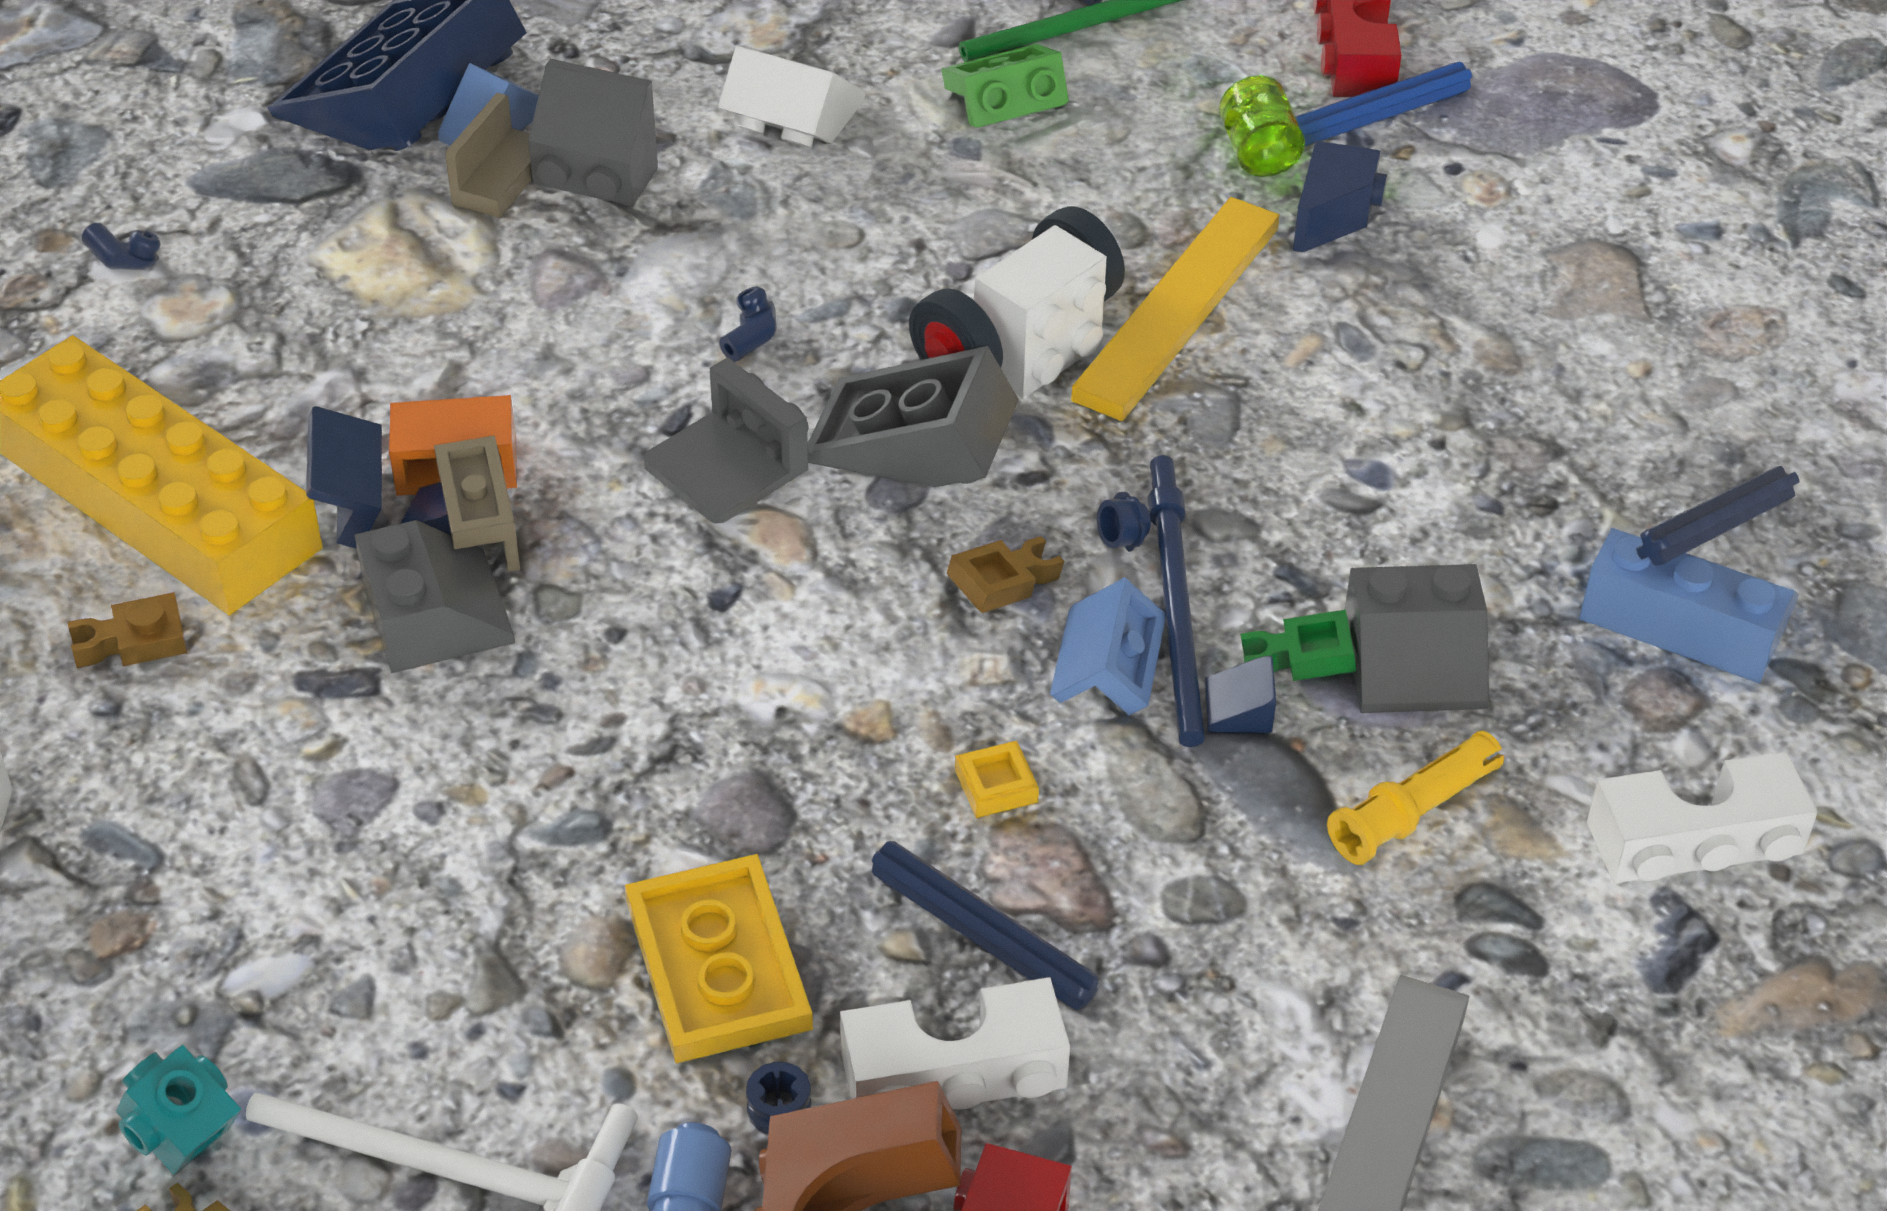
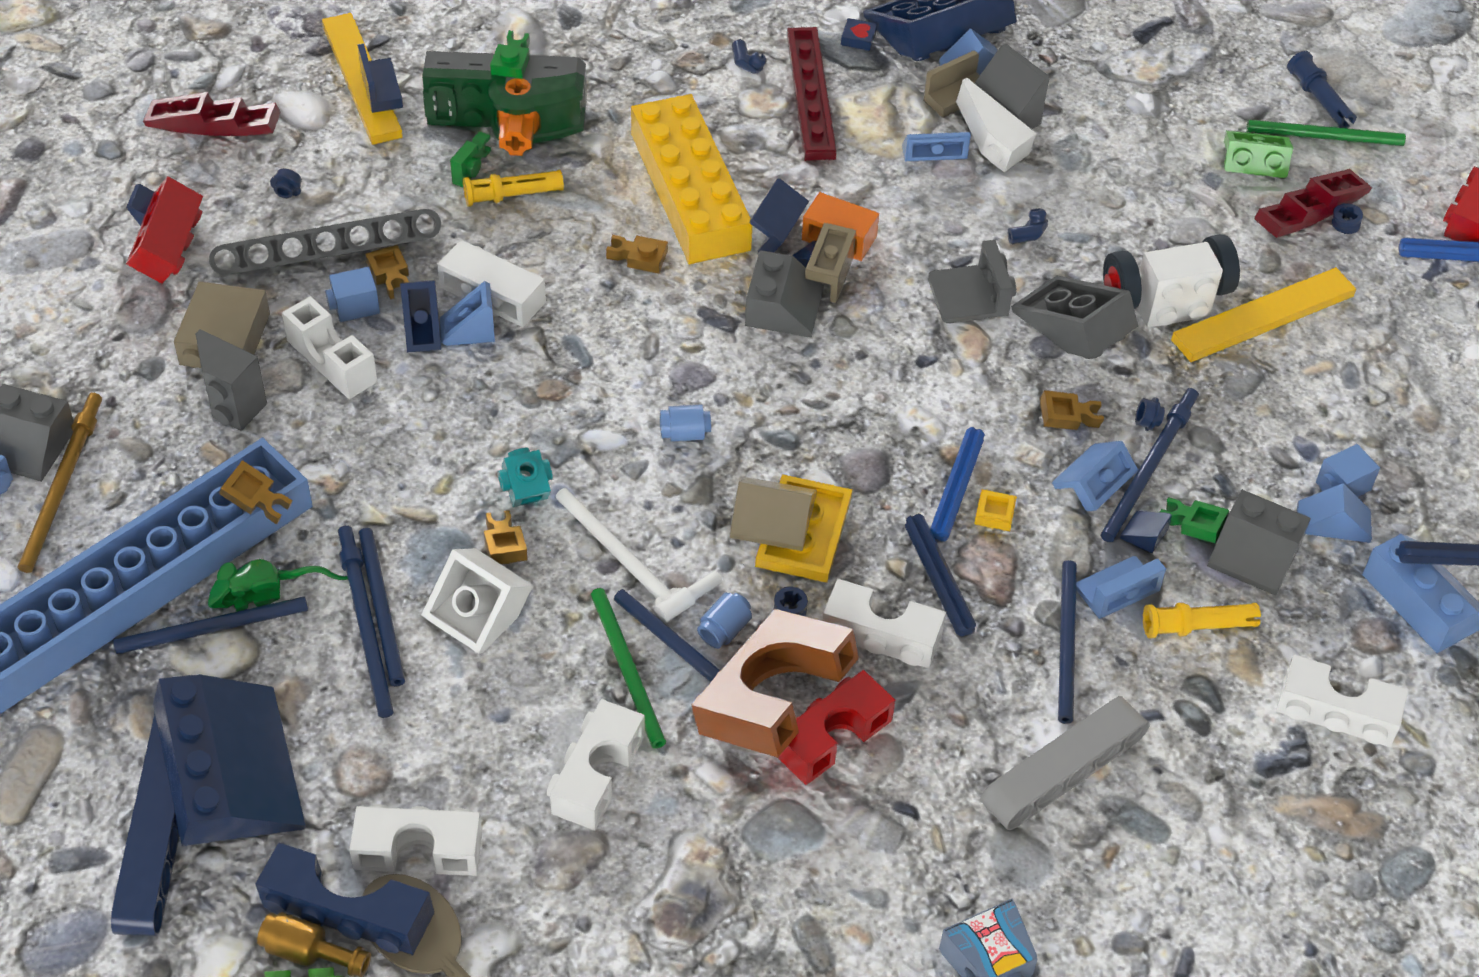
camera: 30 degrees right, 5 degrees up
(265, 264) = (811, 94): none -> dark red tile
(284, 144) = (858, 34): none -> dark blue tile
(400, 878) = (685, 423): none -> medium blue brick
(523, 262) = (936, 146): none -> medium blue slope
(597, 197) = (995, 130): none -> white slope
(658, 956) = (772, 513): none -> dark tan slope
(787, 96) = (1130, 114): white slope -> none
(911, 766) = (957, 484): none -> blue axle
(1133, 122) = (1313, 203): none -> dark red slope
(1197, 113) = (1350, 211): none -> dark blue bush
(1251, 935) = (1067, 643): none -> dark blue piece
(1261, 126) = (1380, 235): clear neon green wheel -> none
(1264, 803) = (1121, 585): none -> medium blue panel
(1337, 193) = (1395, 291): dark blue slope -> none
(1464, 481) = (1349, 467): none -> medium blue brick
(1494, 540) = (1337, 515): none -> medium blue slope

